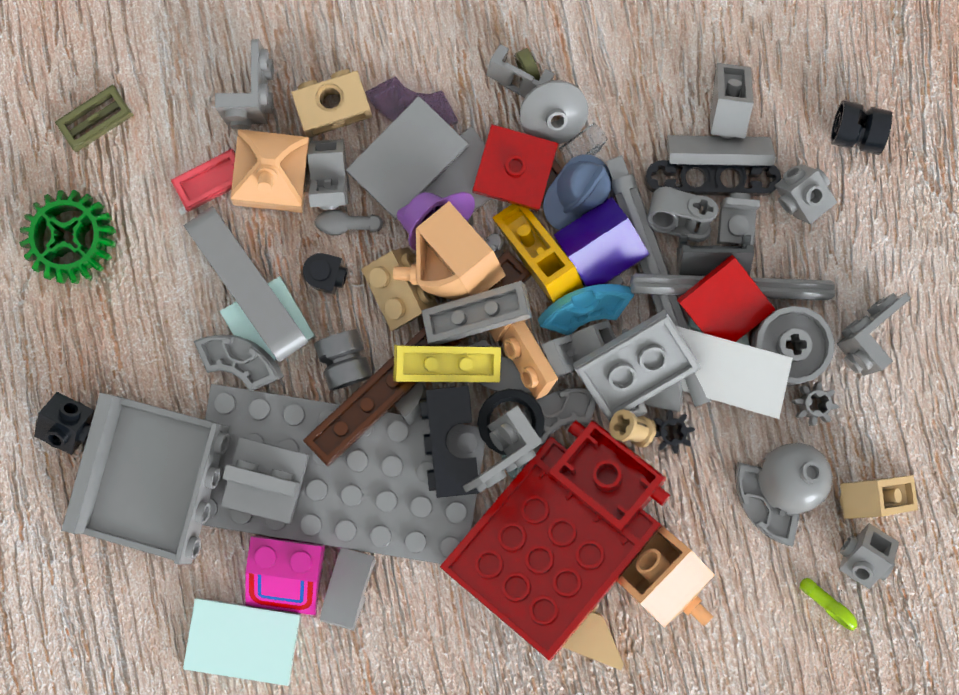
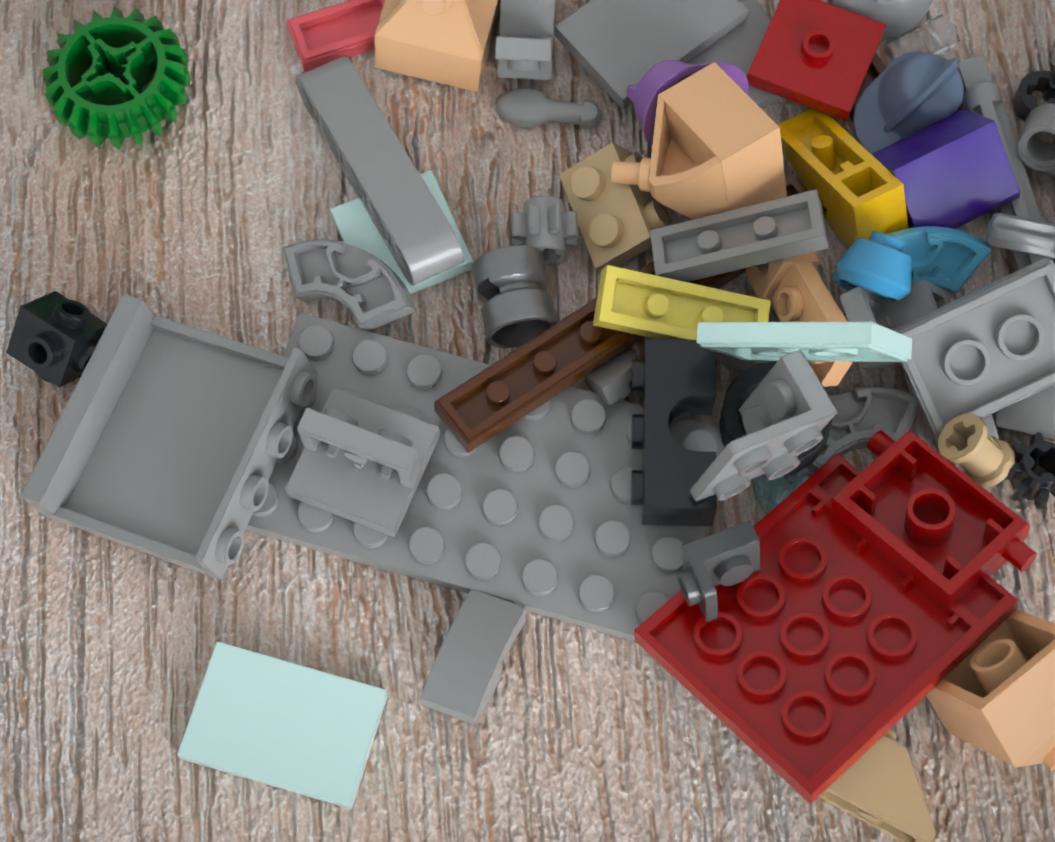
camera: 10 degrees right, 15 degrees down
(283, 574) = (371, 617): dark pink slope -> none
(325, 272) = (502, 171): black plate -> none
(356, 311) = (546, 227): none -> light grey gear
(487, 522) = (715, 560): none -> dark grey bracket
(520, 391) = (816, 339): none -> light aqua tile
(563, 323) = (877, 266): none -> dark azure cone

